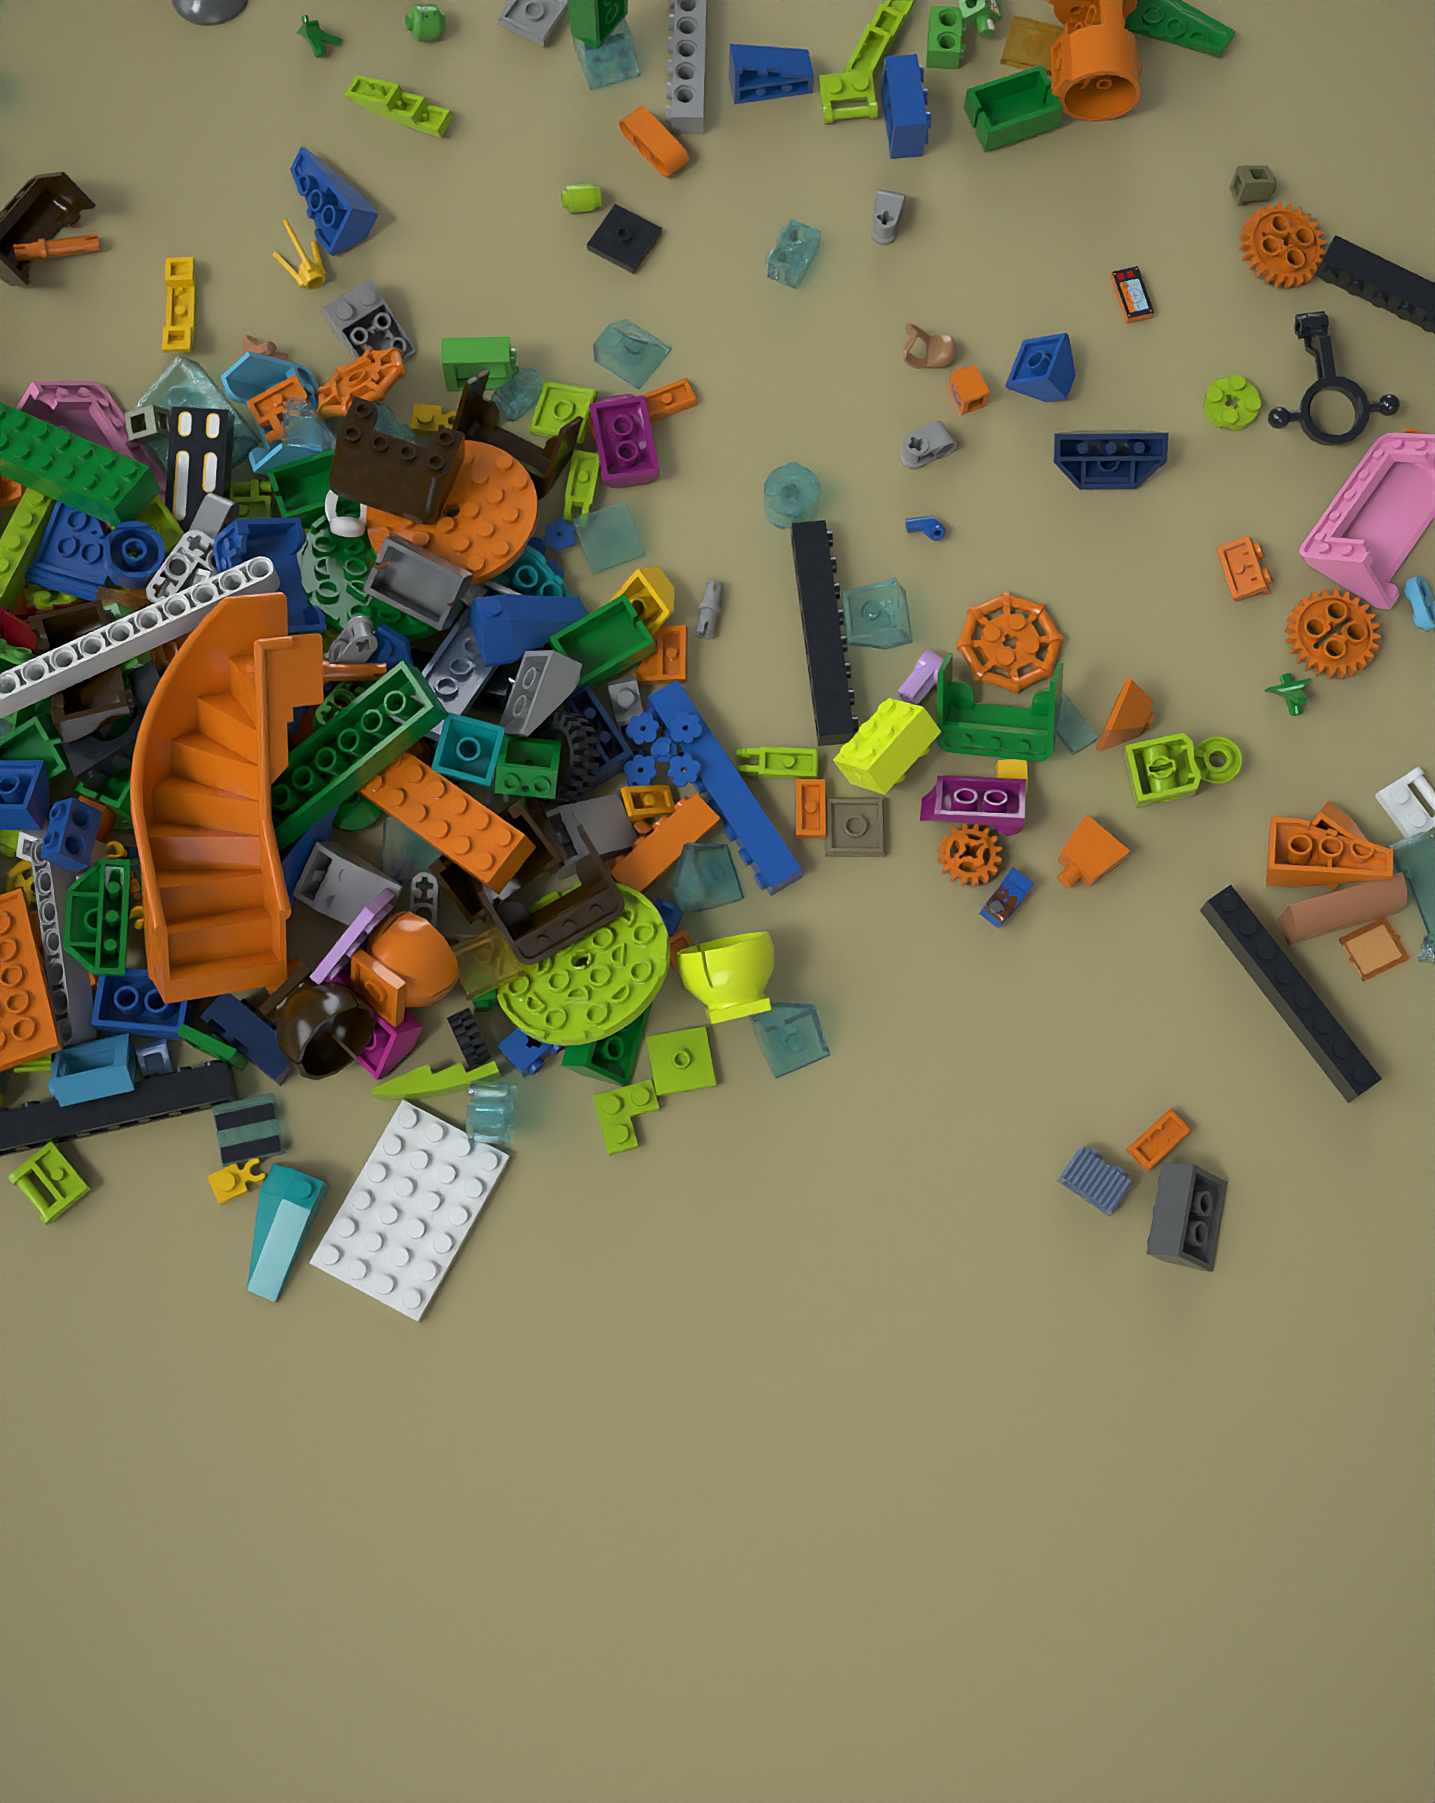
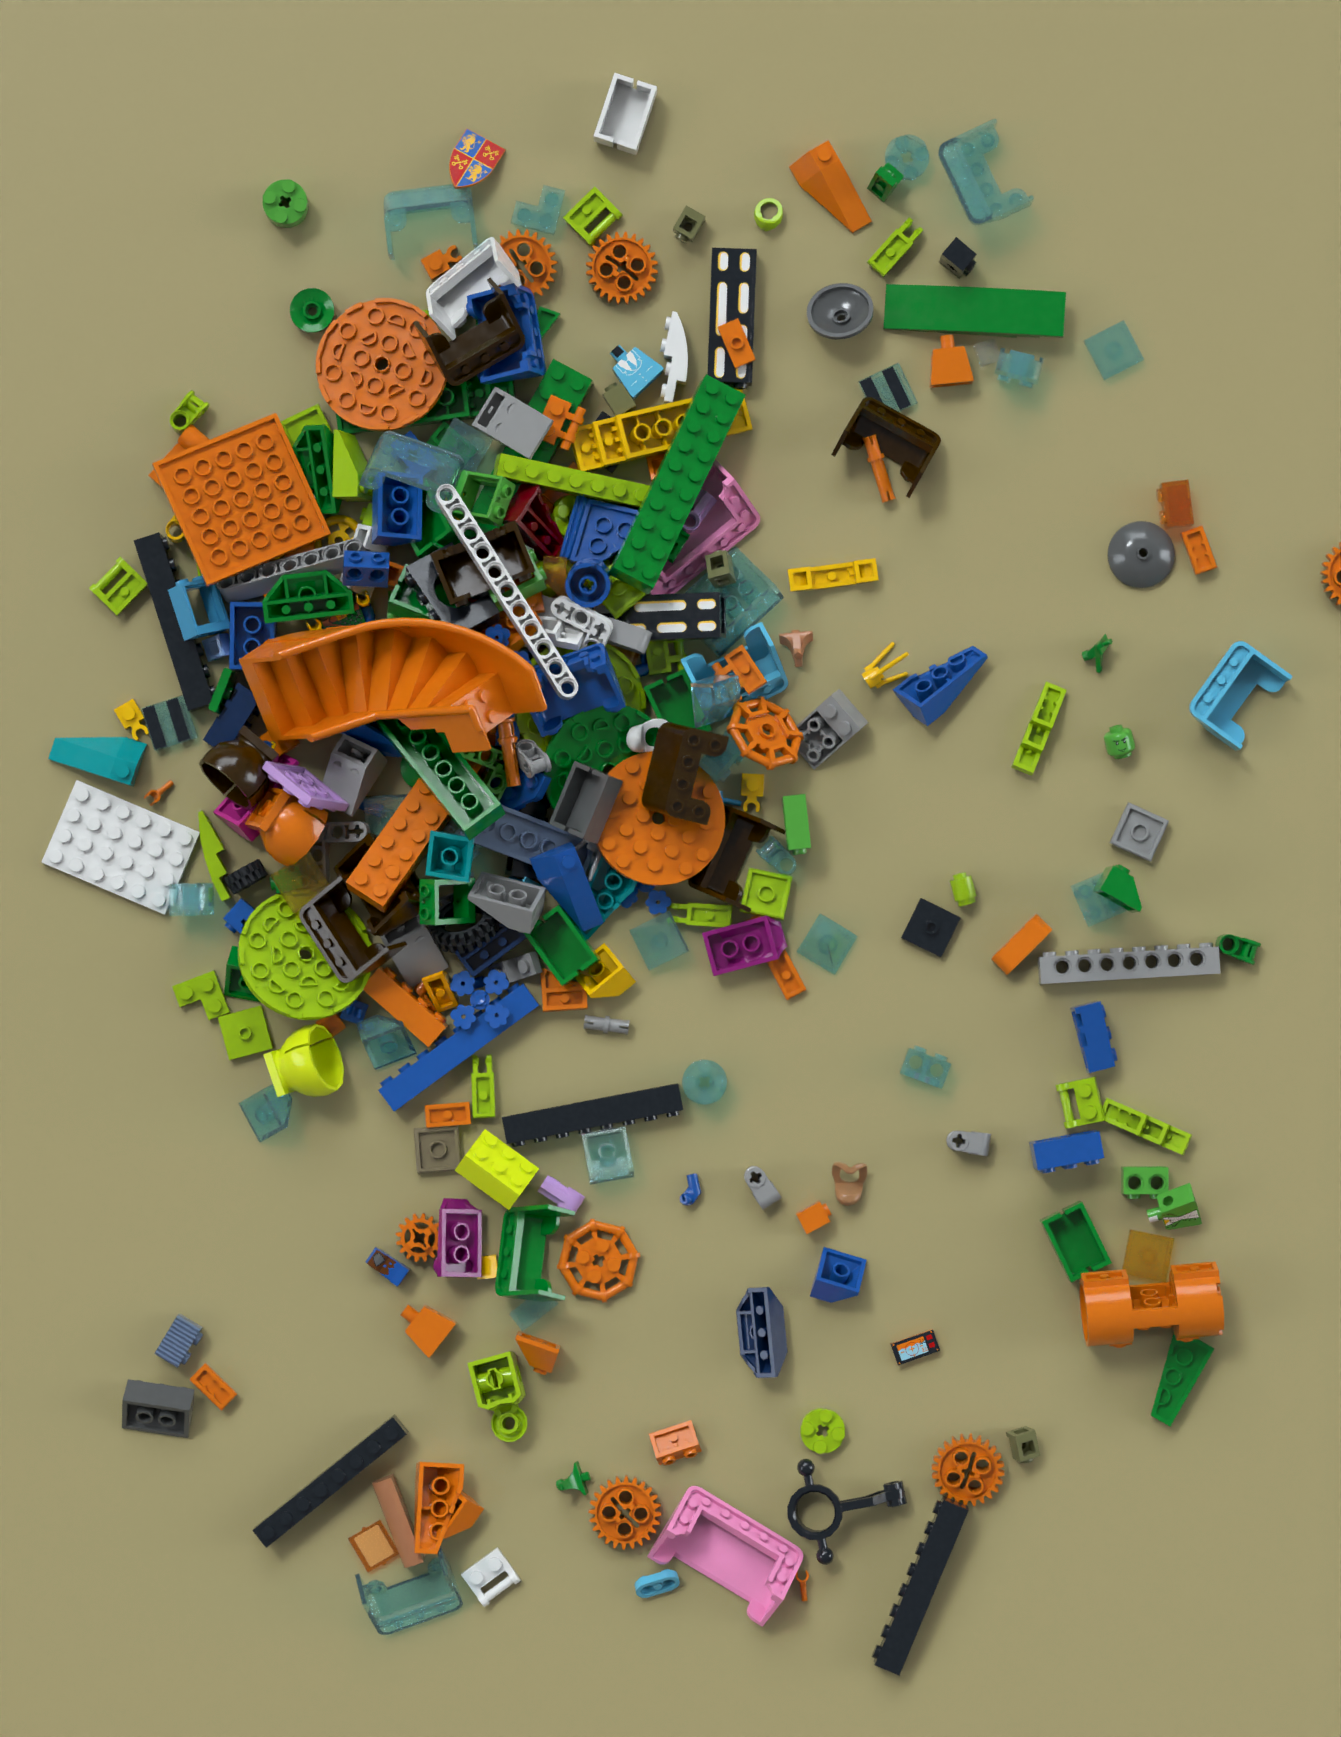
camera: 85 degrees right, 15 degrees up
(343, 1154) = (157, 793): none -> orange hand

